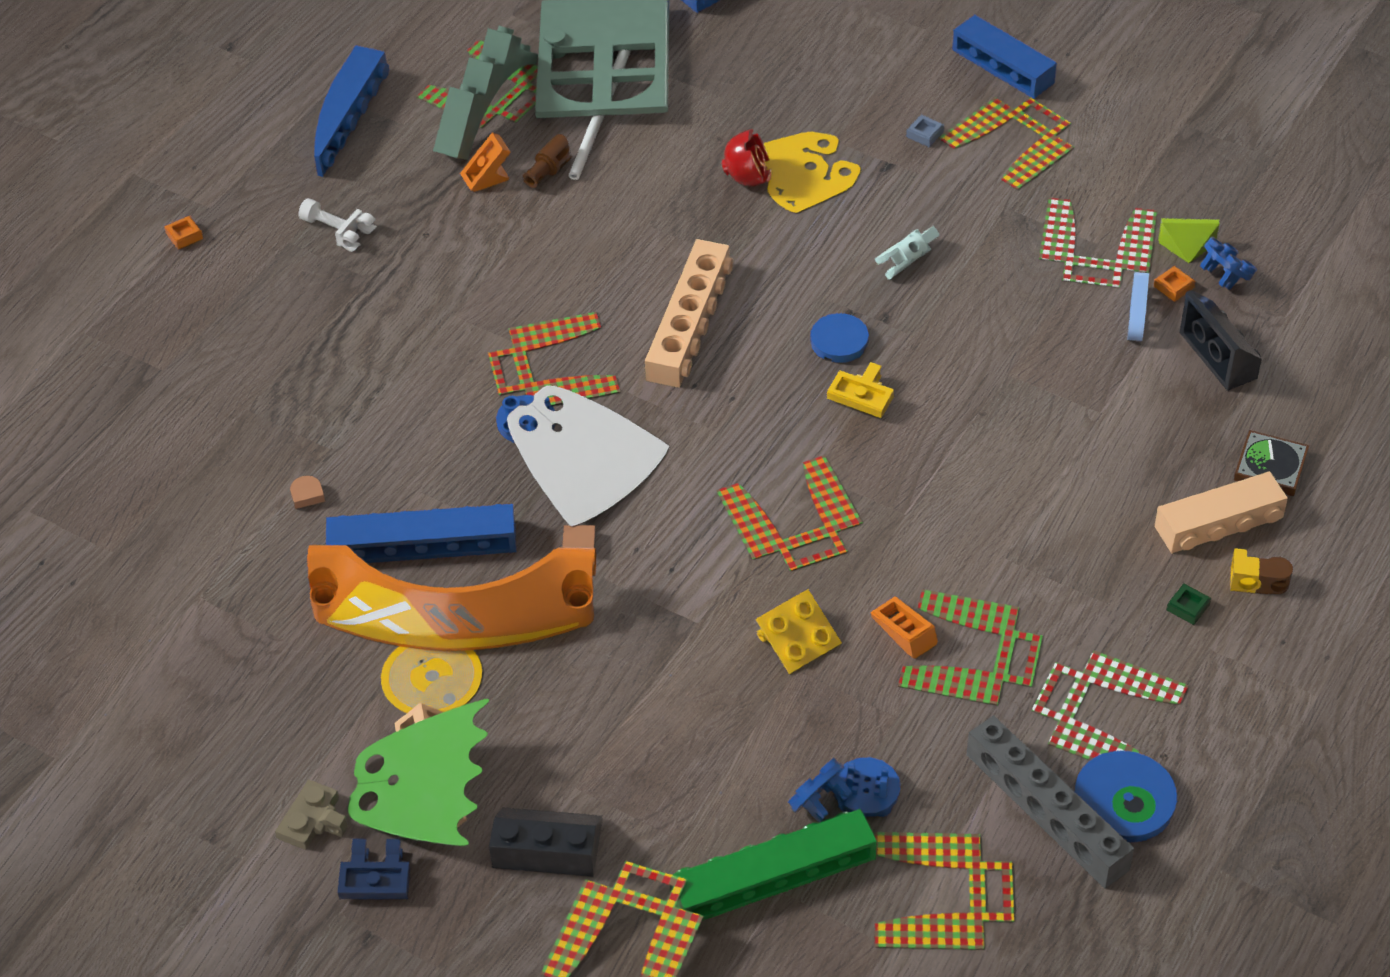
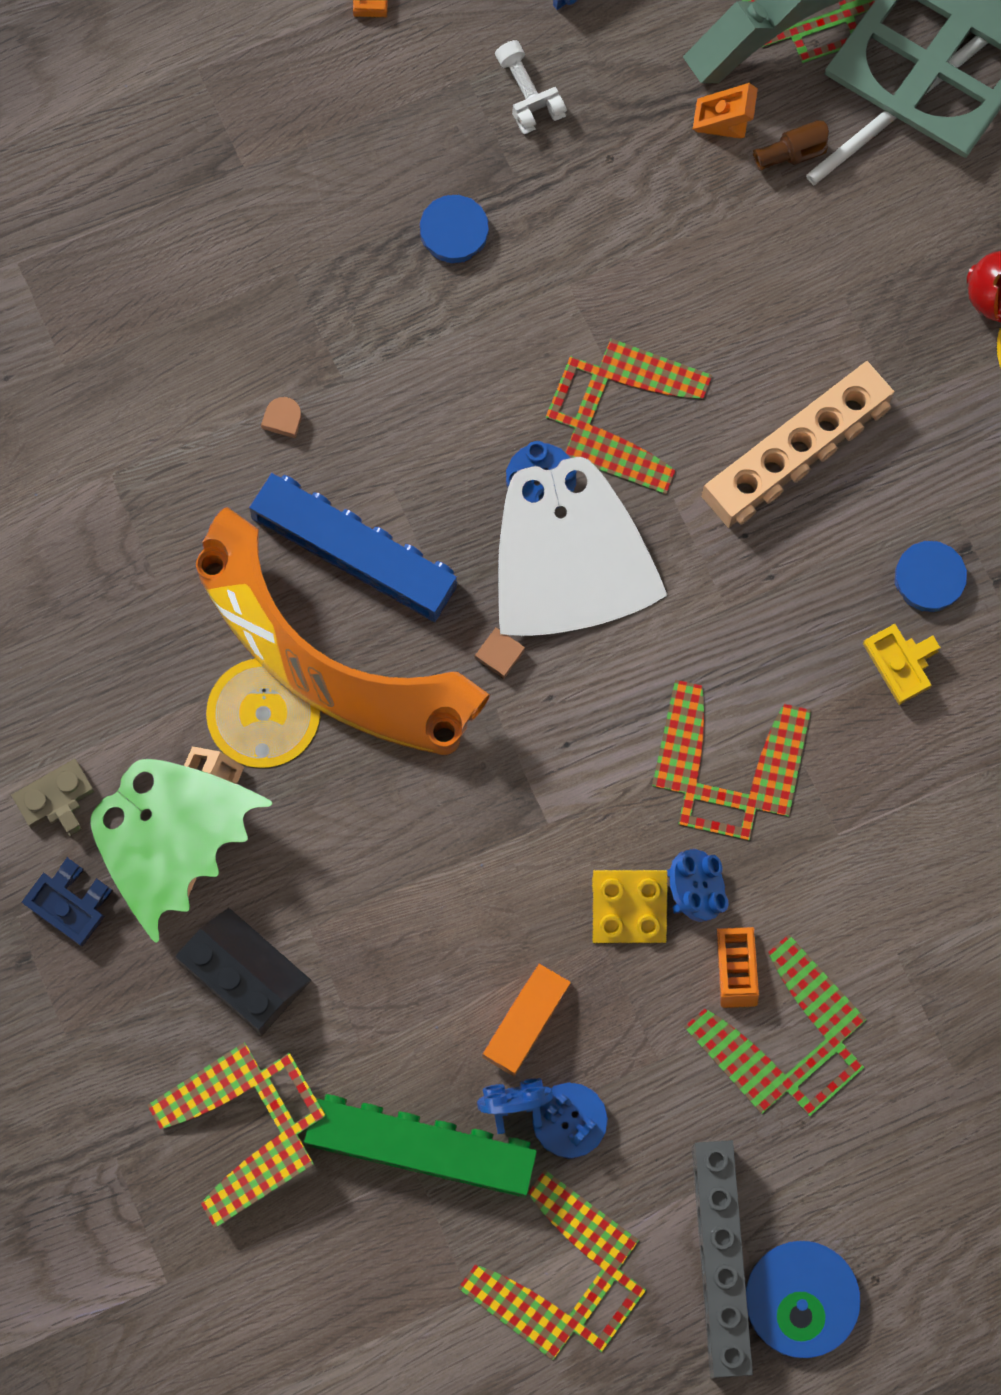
camera: 30 degrees right, 25 degrees up
(346, 323) = (454, 228): none -> blue tile
(783, 744) = (526, 1020): none -> orange slope
(834, 586) = (697, 885): none -> blue plate
(1111, 674) = (898, 1160): piece -> none

